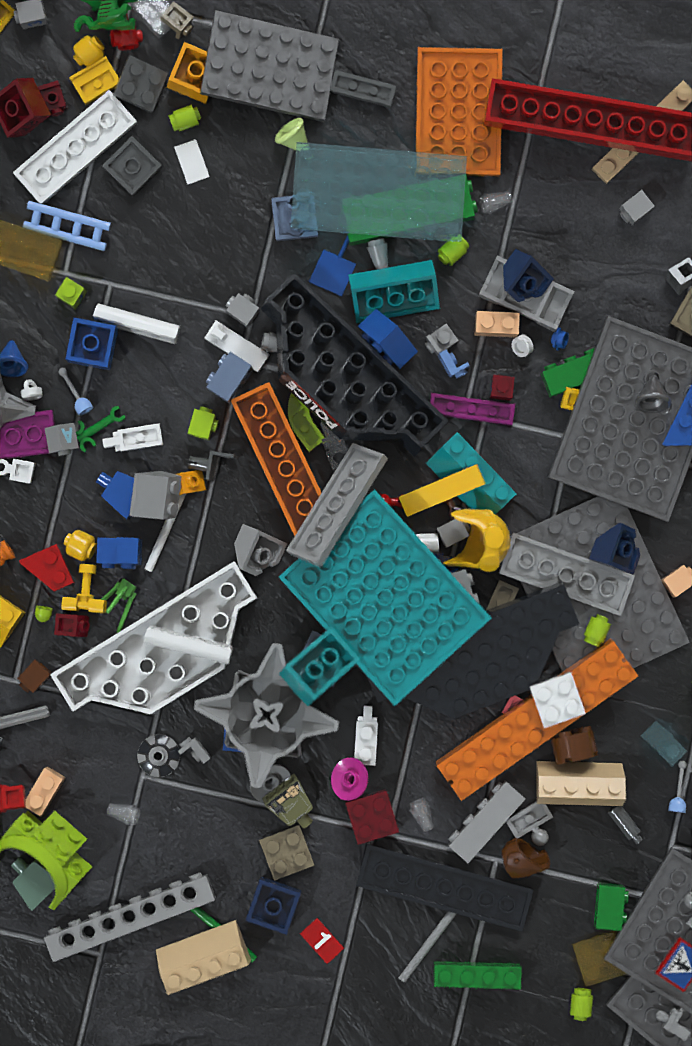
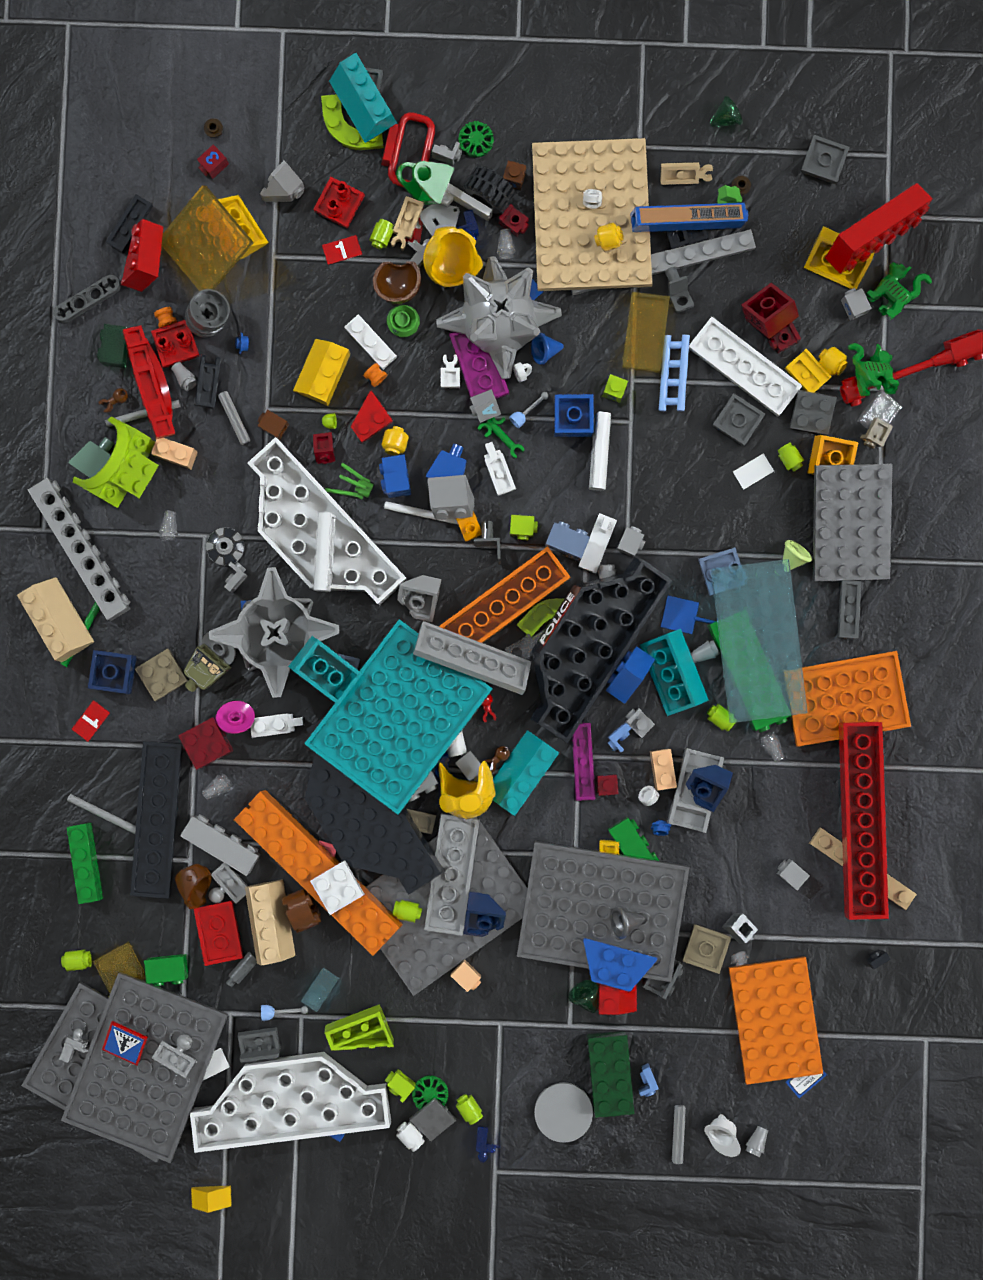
camera: 80 degrees right, 0 degrees up
(85, 600) = (347, 454): yellow bar -> none
(442, 490) = (505, 749): yellow tile -> none
(581, 842) = (218, 933): none -> red plate

